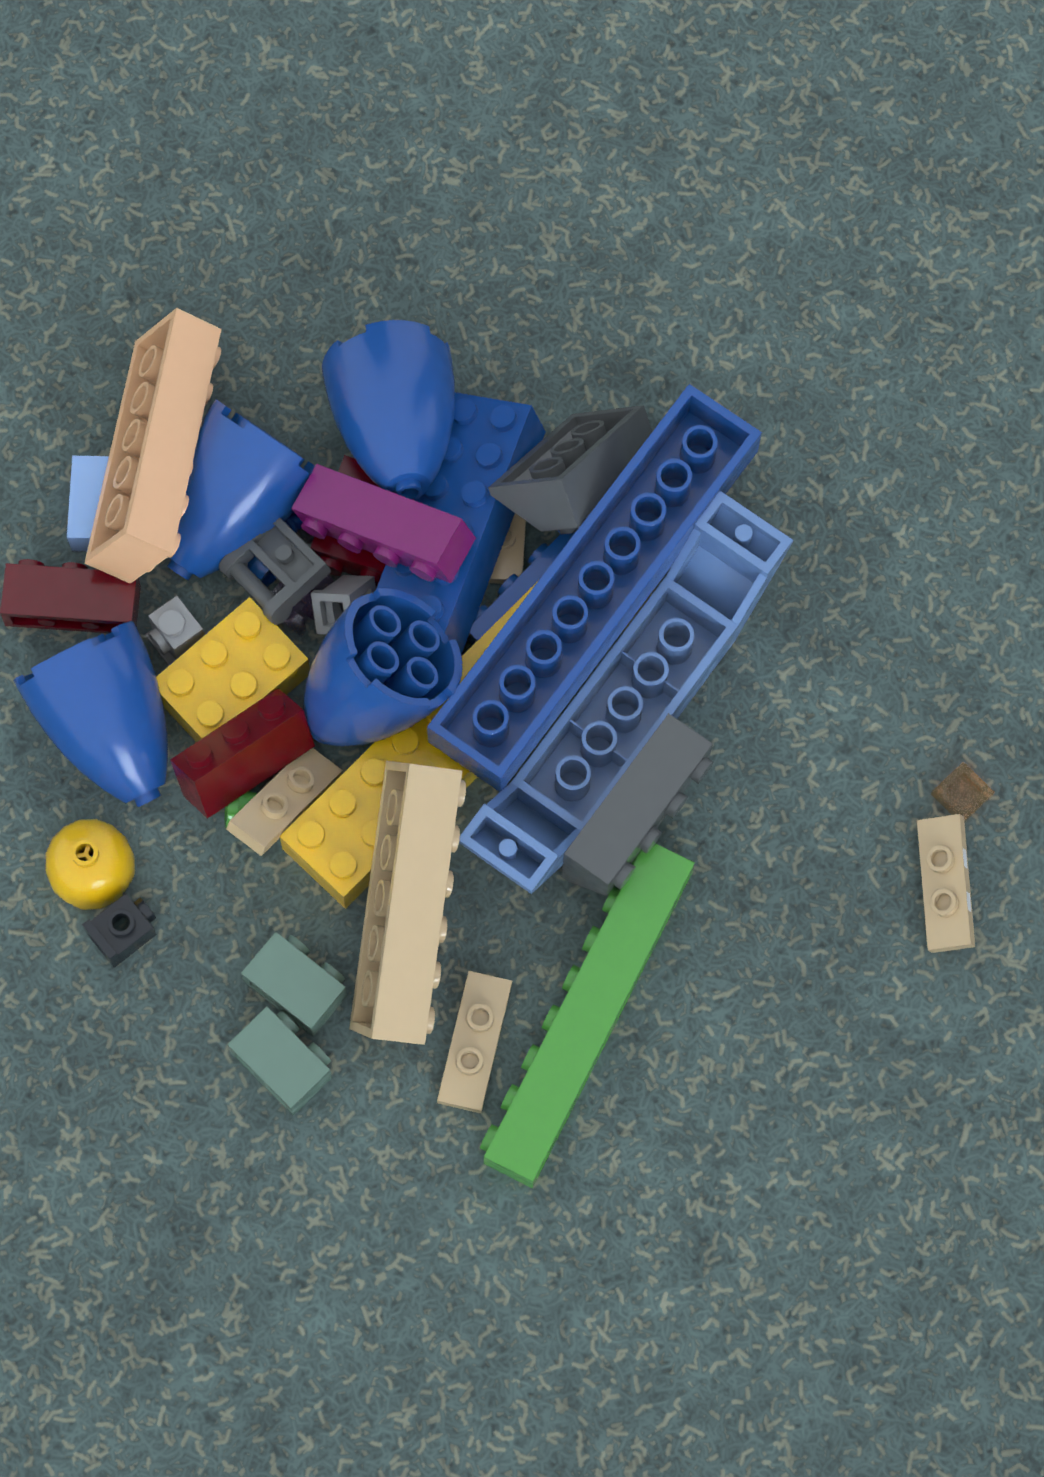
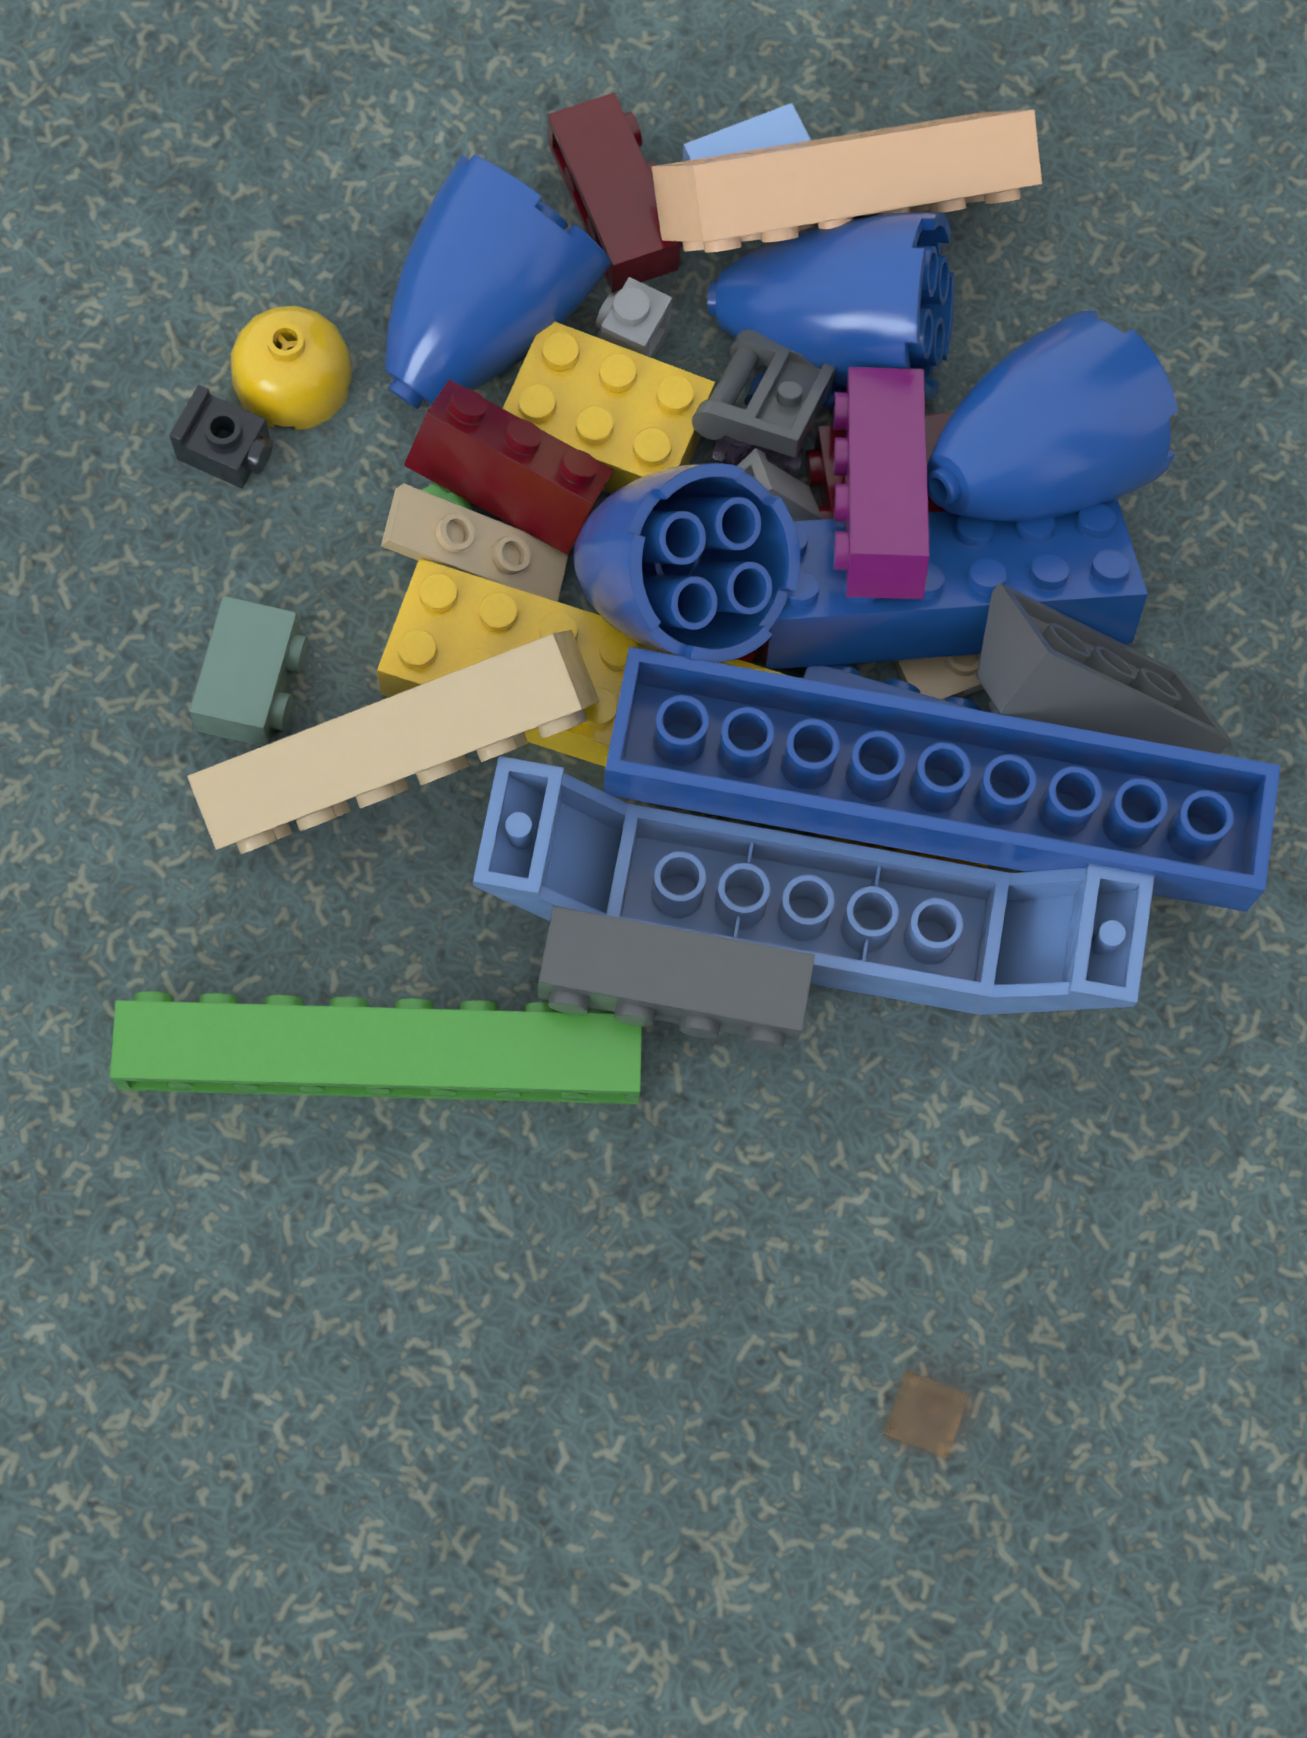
camera: 60 degrees right, 0 degrees up
(281, 1059) = (139, 700): sand green brick -> none
(474, 1042) = (277, 928): tan plate -> none
(945, 883) = (784, 1447): tan plate -> none

